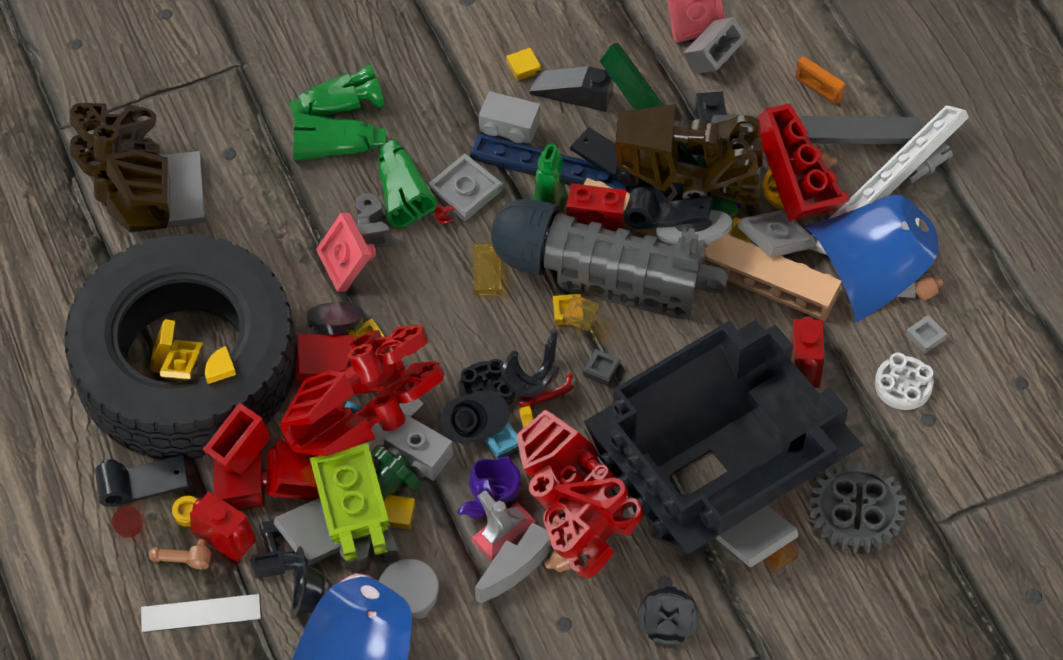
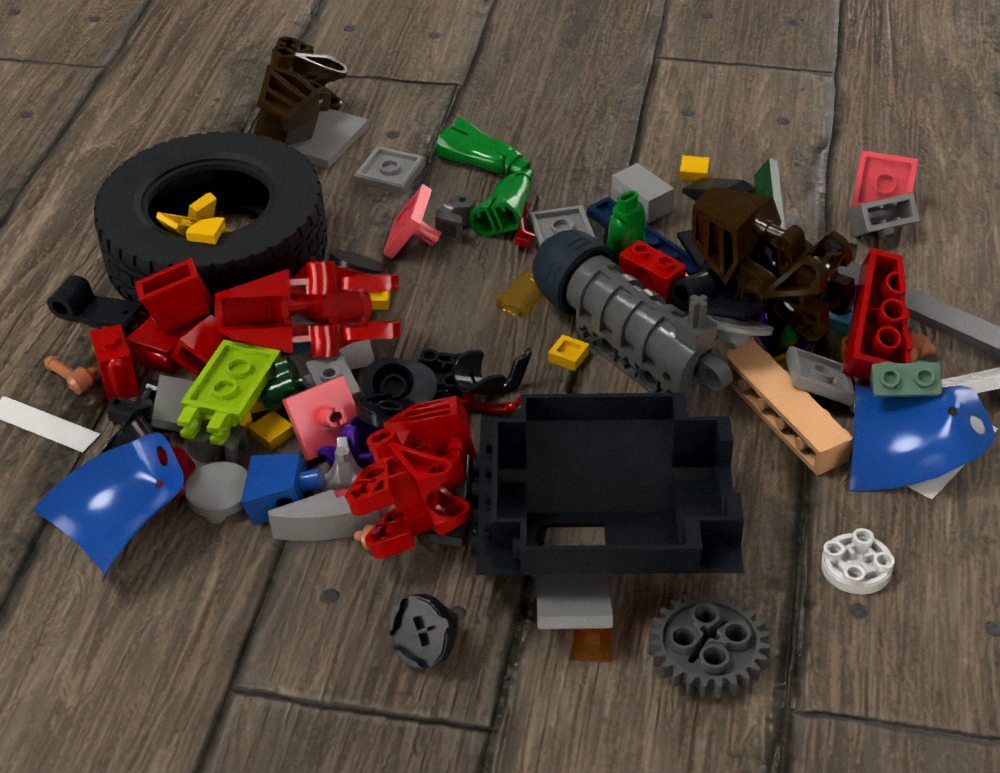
camera: 35 degrees right, 15 degrees down
(127, 521) = (56, 331): clear red tile -> none
(264, 197) = (389, 170): none -> light grey tile
(340, 94) = (519, 126): green piece -> none
(442, 480) = (320, 414): none -> coral tile
(458, 559) = (277, 482): none -> blue torso
(491, 449) = (380, 407): none -> black tile
(581, 312) = (574, 355): clear yellow tile -> none
(808, 348) = (768, 481): red torso -> none
(820, 80) = (970, 282): orange tile -> none
(854, 215) = (906, 379): none -> sand green bracket
(926, 334) = (917, 533): light grey tile -> none
(927, 287) = (950, 491): nougat piece -> none

